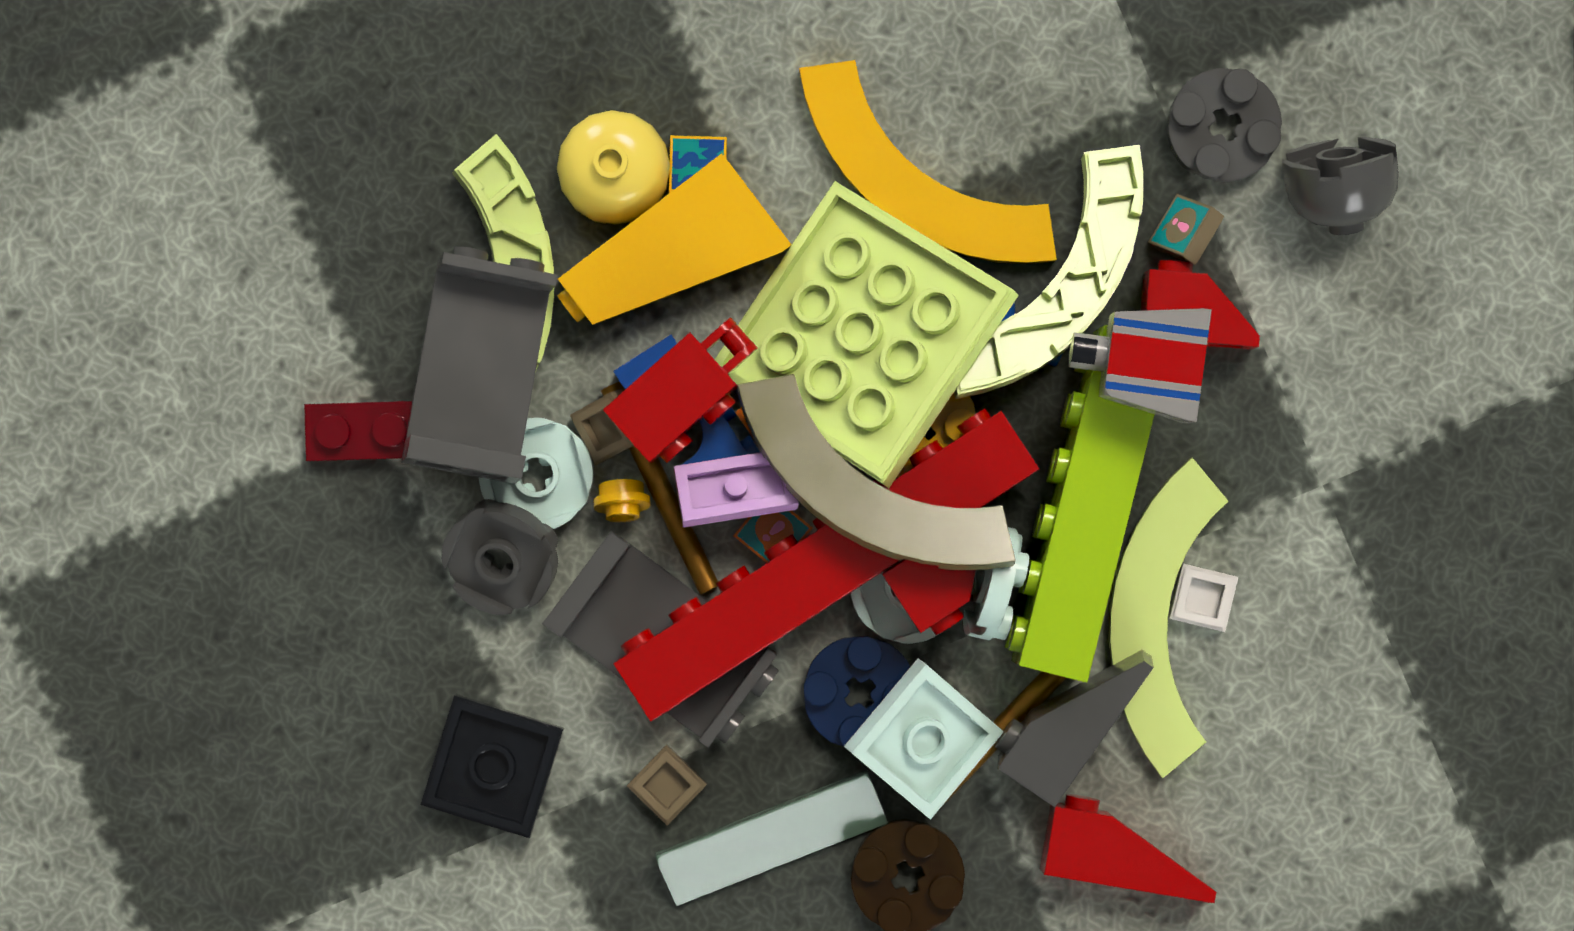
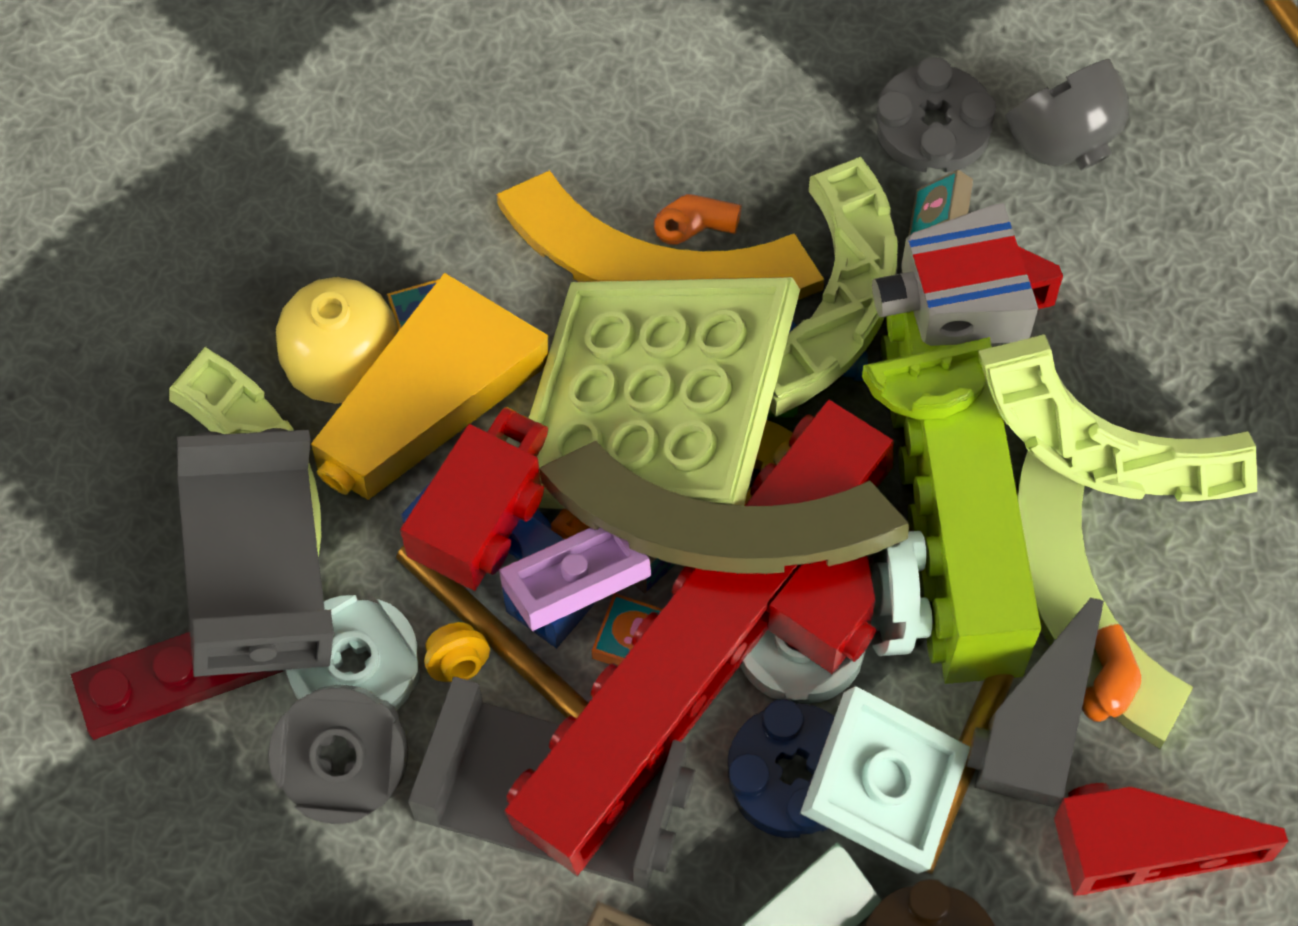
camera: 20 degrees left, 25 degrees down
(598, 431) = (414, 590): dark tan tile -> none
(967, 149) = (694, 214): none -> orange arm
(1089, 437) = (929, 382): none -> lime tile
(1145, 720) = (1118, 678): none -> orange arm
(1196, 519) = (1101, 453): none -> yellowish green tile
(1203, 597) = (1119, 547): white tile -> none

